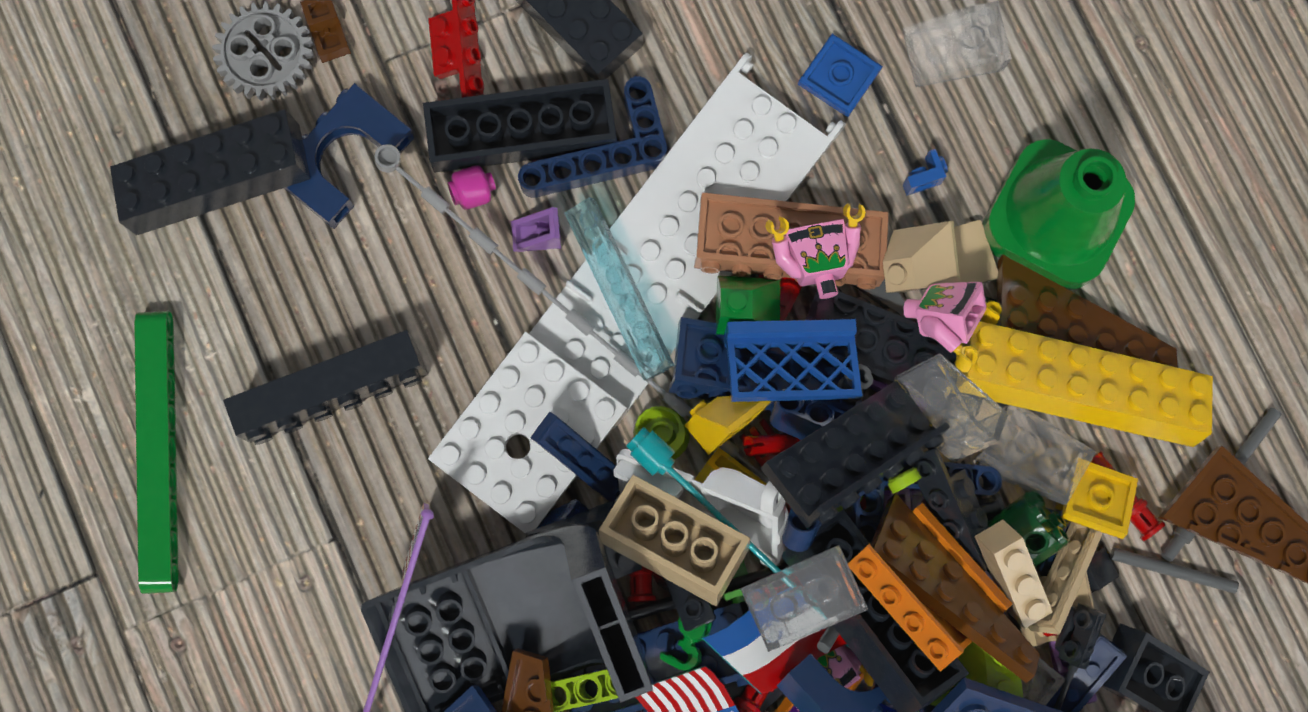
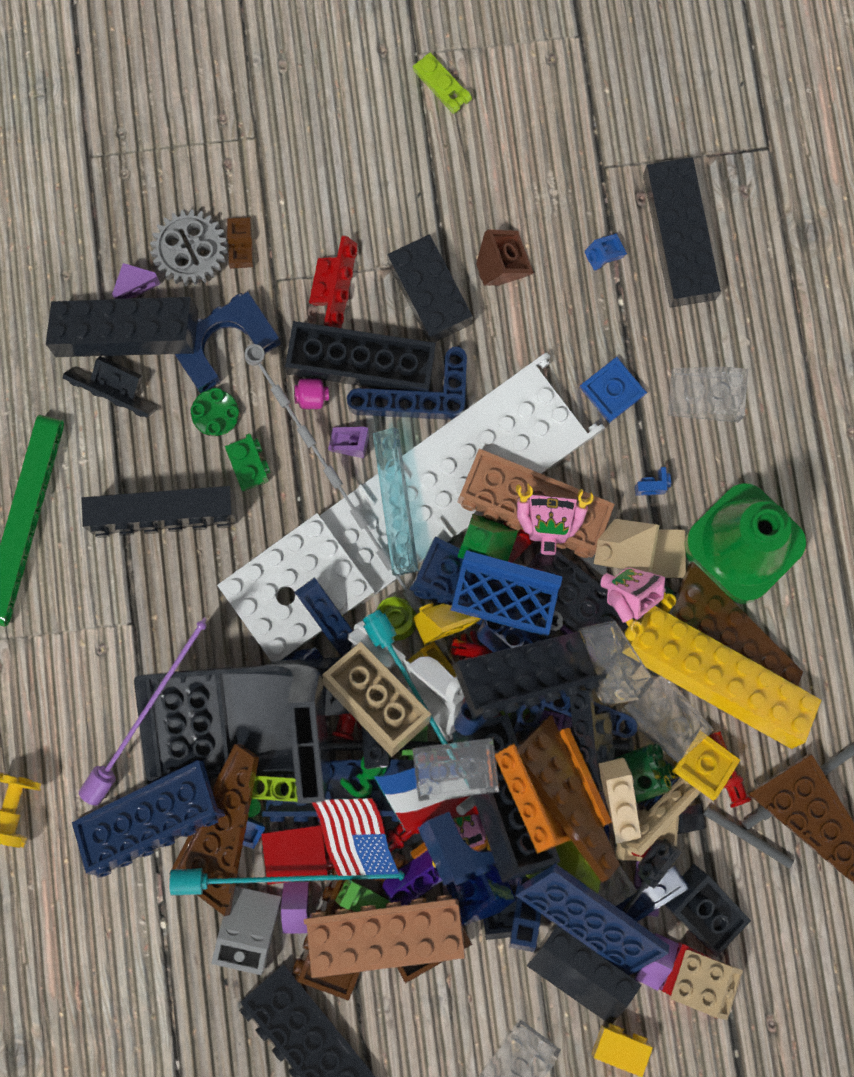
camera: 20 degrees right, 0 degrees up
(207, 112) = (133, 282): none -> medium lavender slope
(220, 247) = (114, 384): none -> black bracket
(358, 245) = (214, 412): none -> green dish
(418, 296) = (247, 463): none -> green bracket
(904, 480) = (560, 706): lime tile -> none

